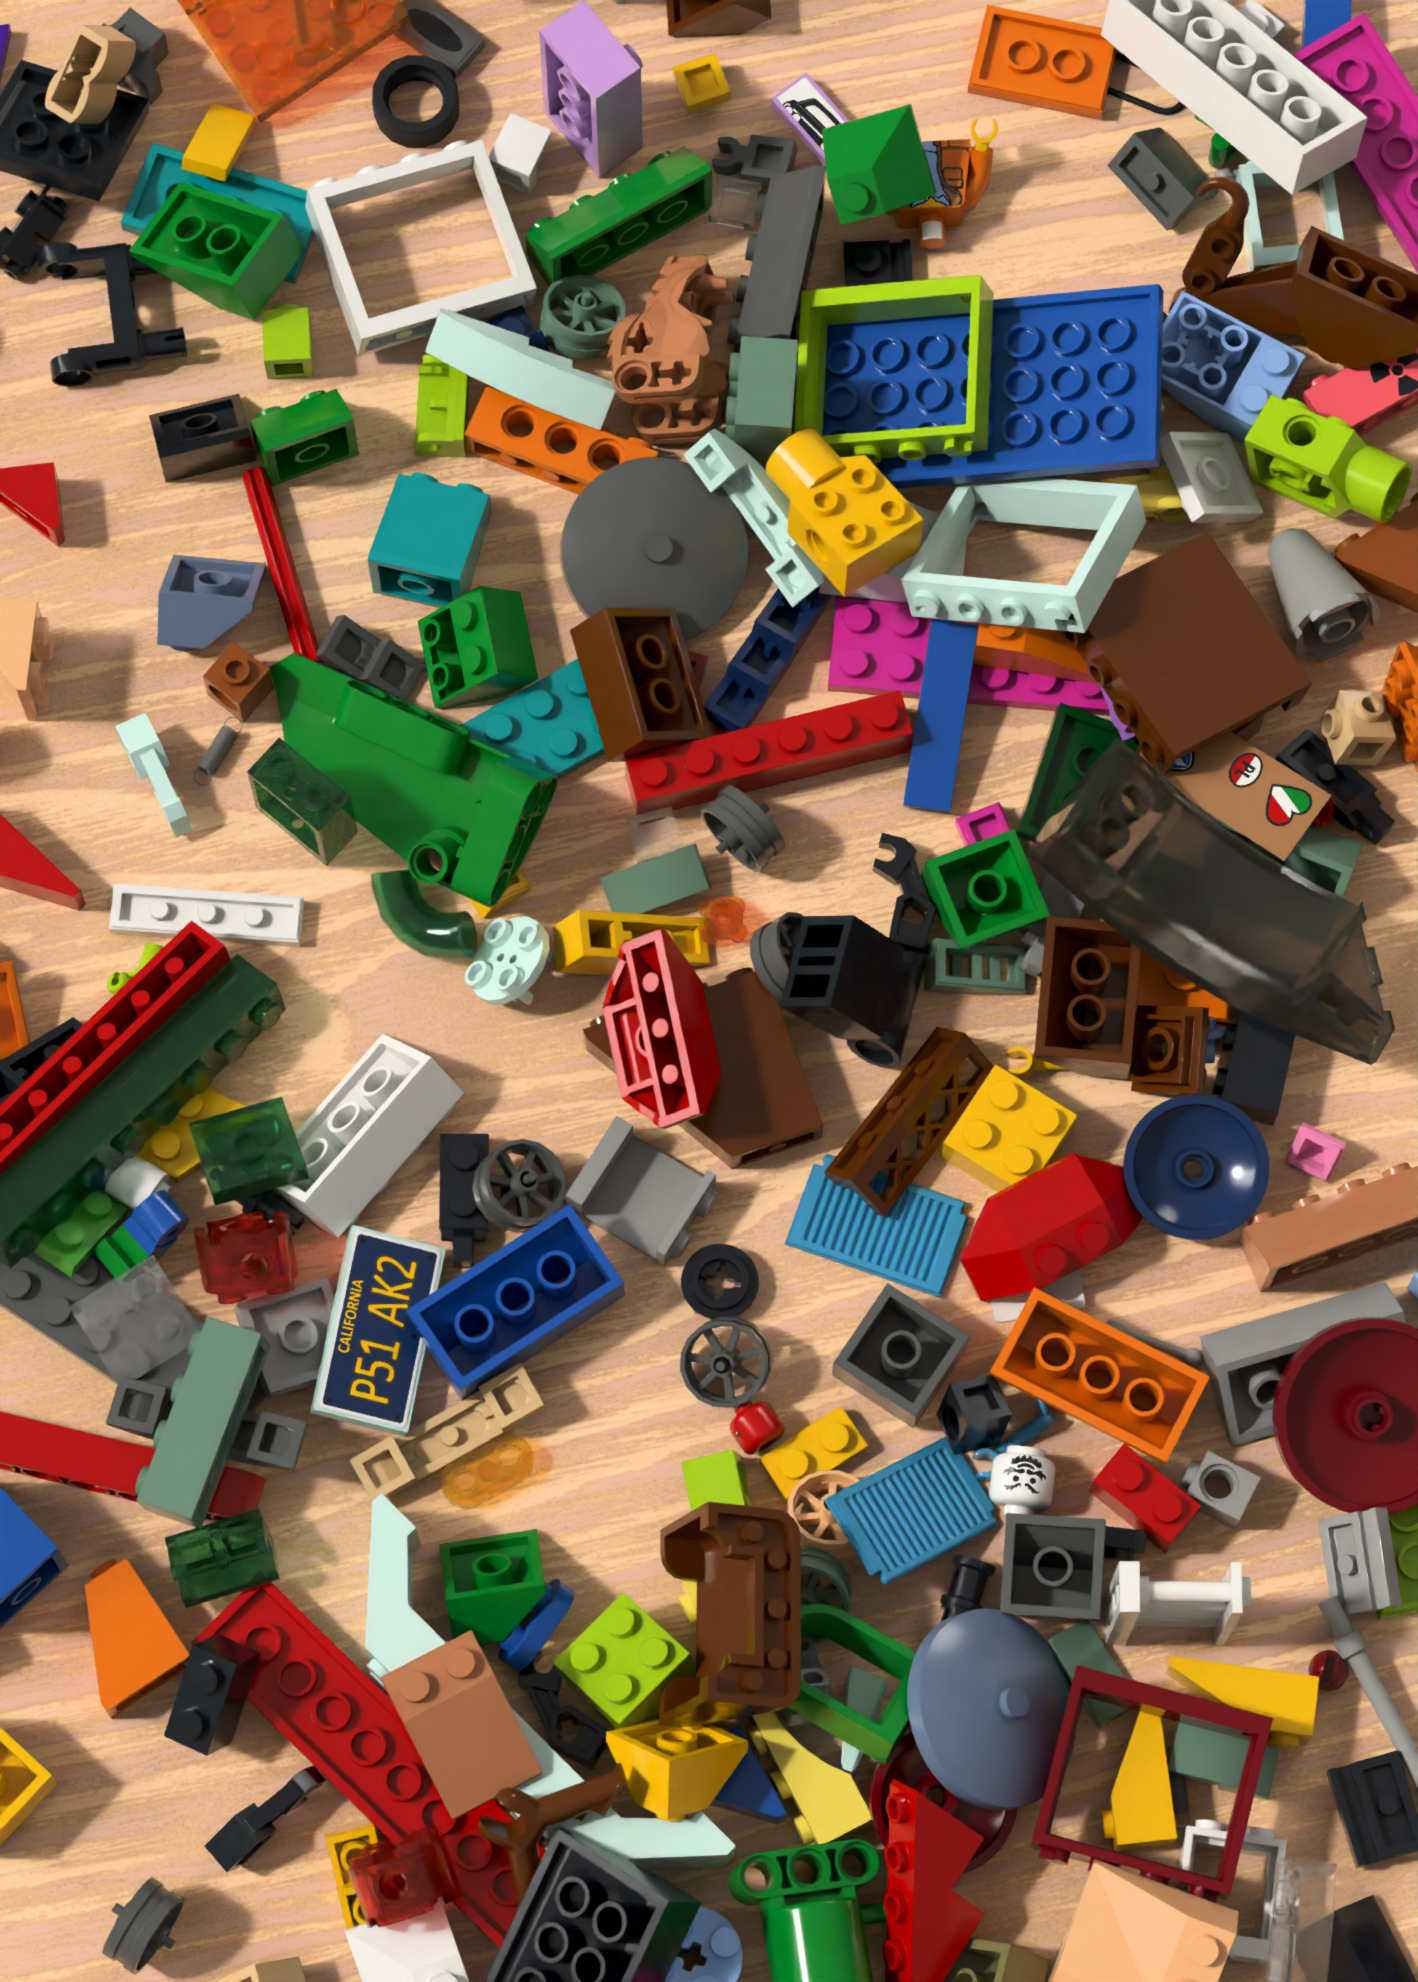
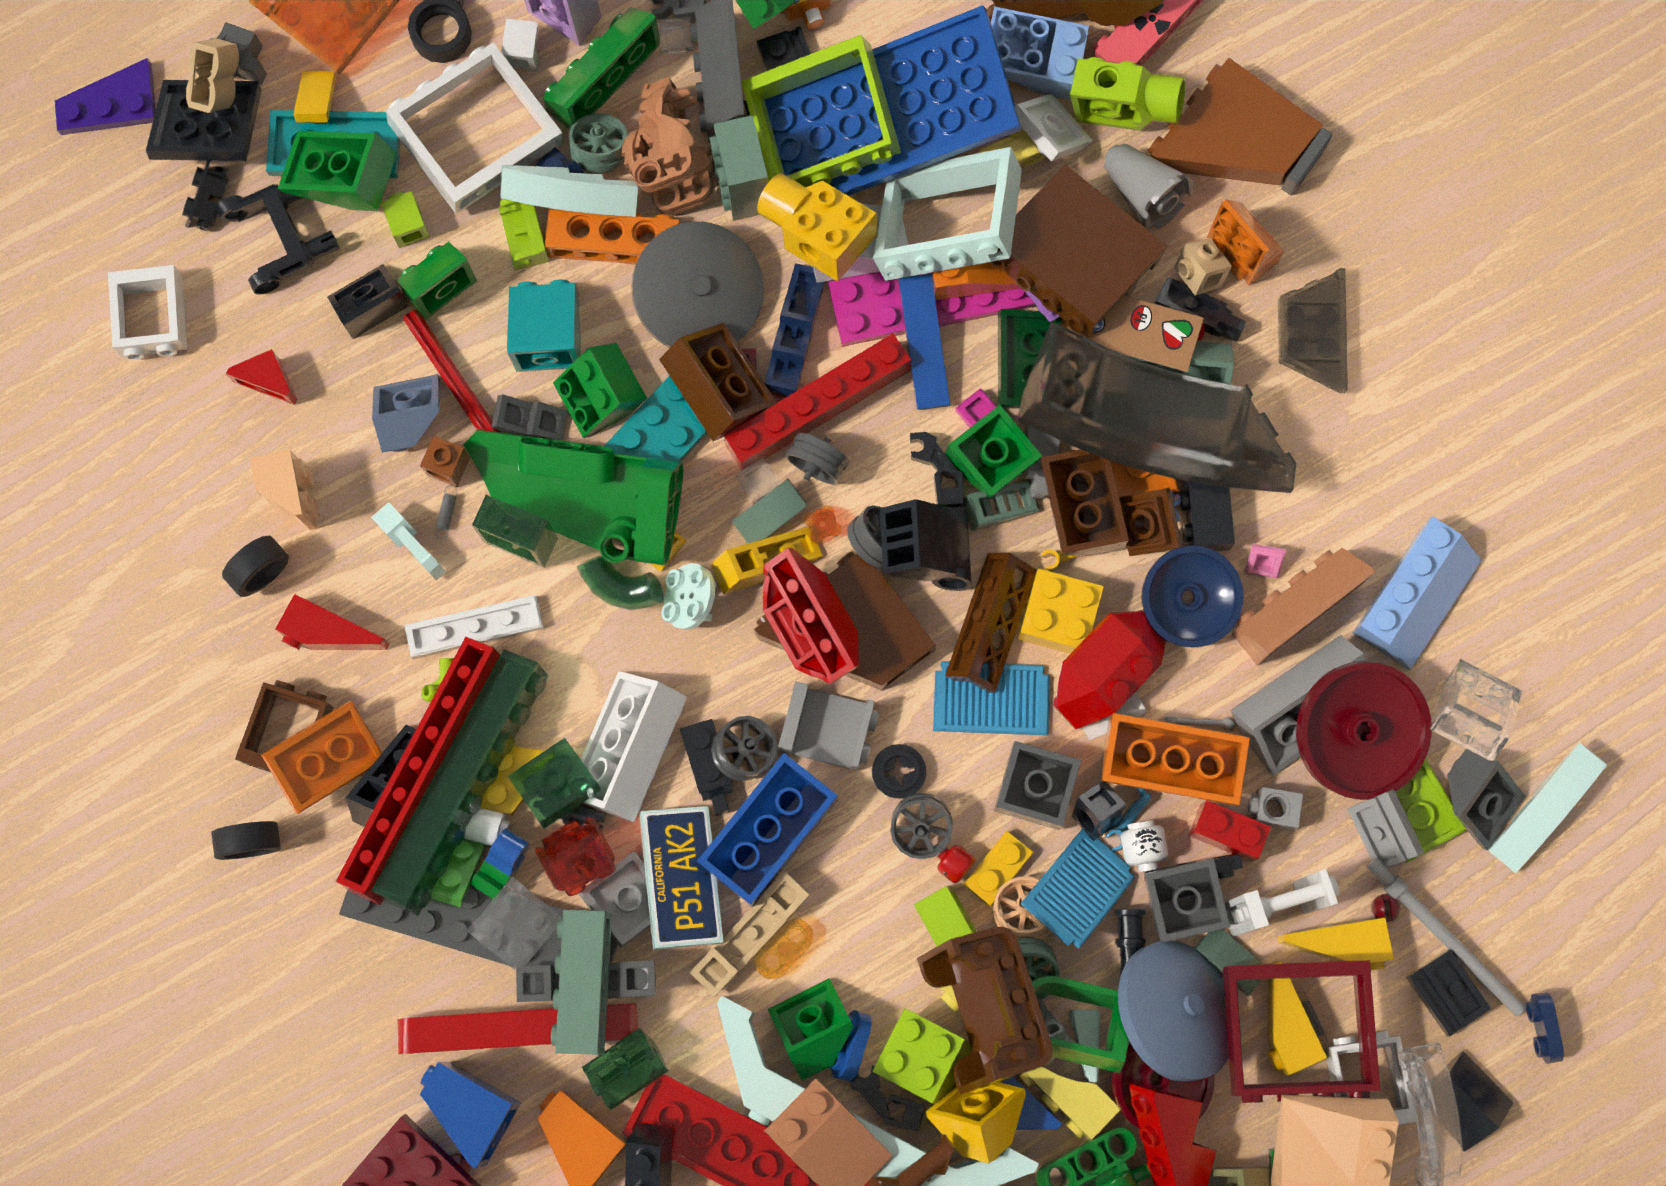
camera: 15 degrees left, 5 degrees up
(763, 505) = (763, 236): light aqua slope -> none
(1217, 1759) = (1329, 994): sand green slope -> none

